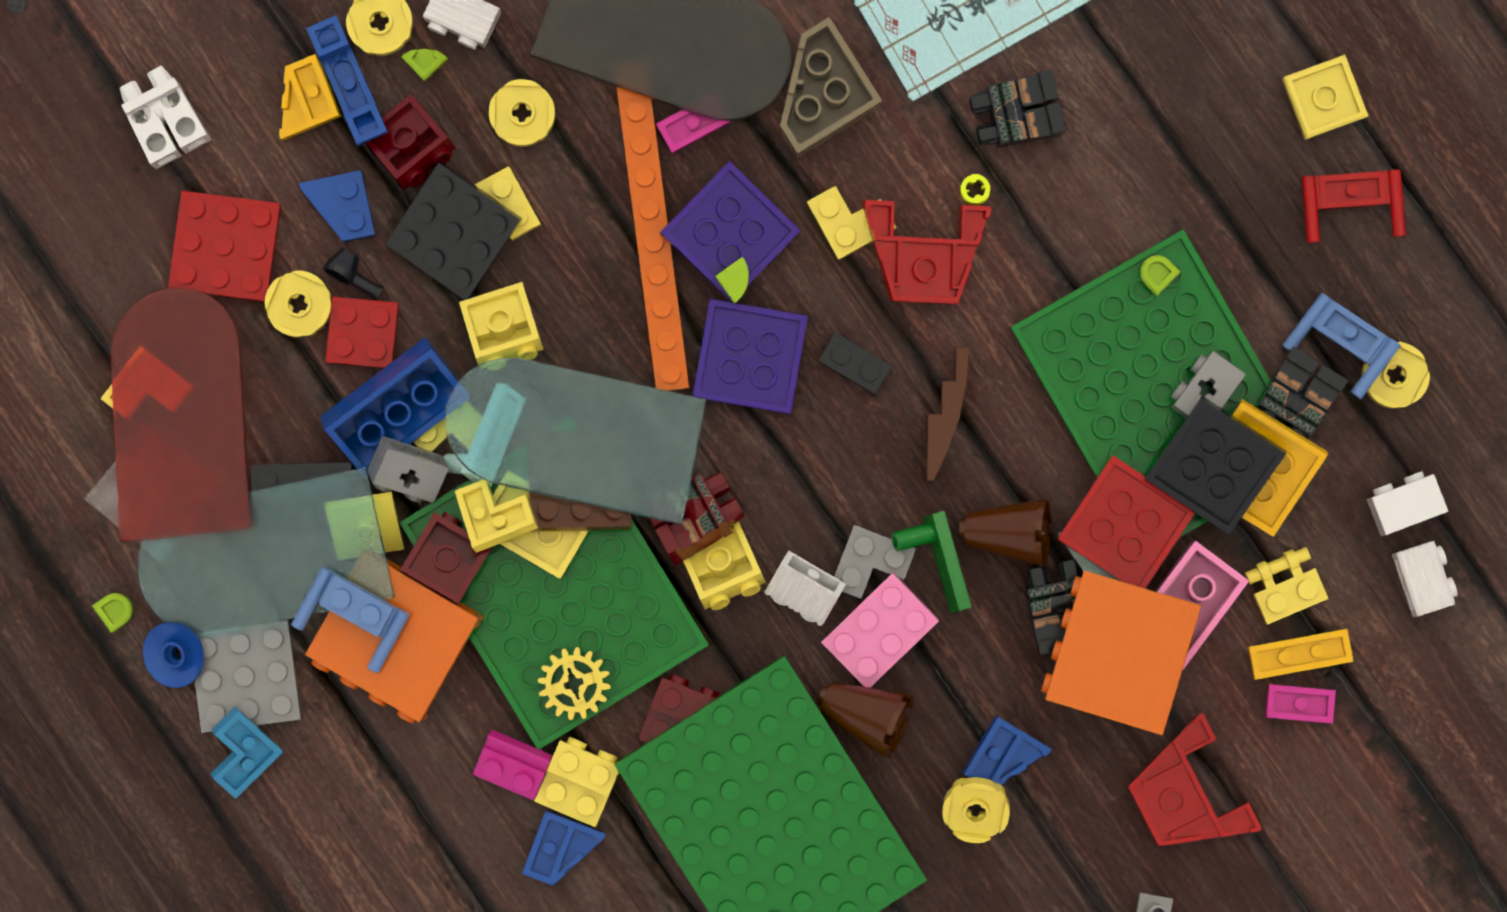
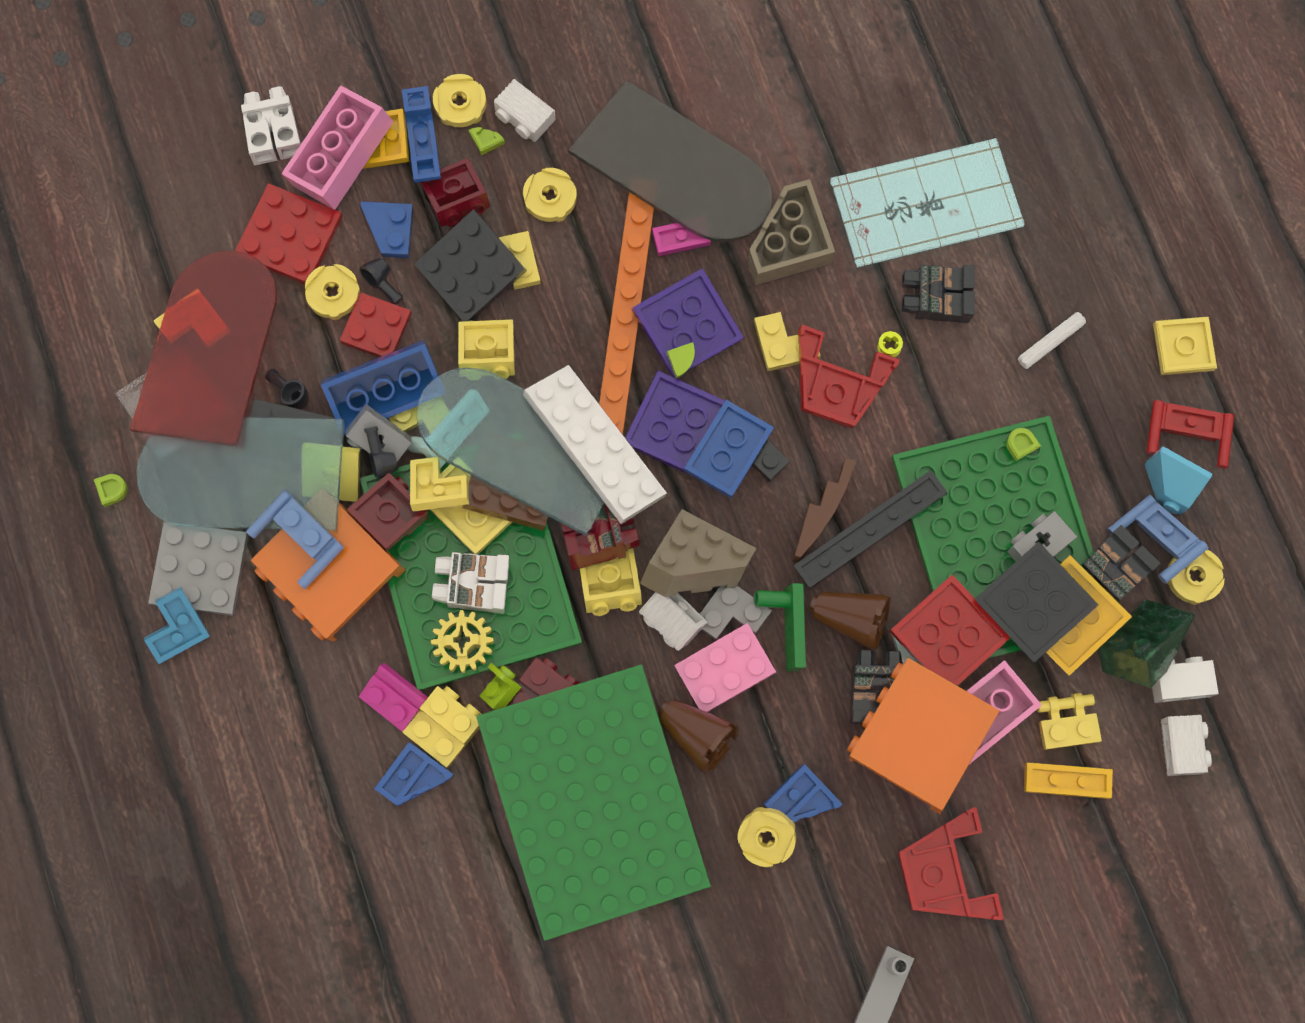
camera: 10 degrees right, 10 degrees down
(162, 659) = (137, 530): blue dish -> none
(253, 128) = (337, 147): none -> bright pink brick
(284, 439) = (289, 390): none -> black bar
(421, 501) = (381, 462): none -> black bar
(556, 611) = (474, 582): none -> white hips
(631, 723) = (501, 688): none -> lime bracket
(660, 411) = (594, 444): none -> white plate
(814, 515) = (696, 558): none -> dark tan brick
(818, 374) = (728, 449): none -> blue plate
(1006, 425) = (870, 529): none -> black plate
(1165, 132) = (1051, 340): none -> white axle
(1300, 703) = (1059, 822): dark pink plate -> none
(1347, 272) = (1175, 480): none -> medium azure slope
(1354, 474) = (1145, 643): none -> clear green slope

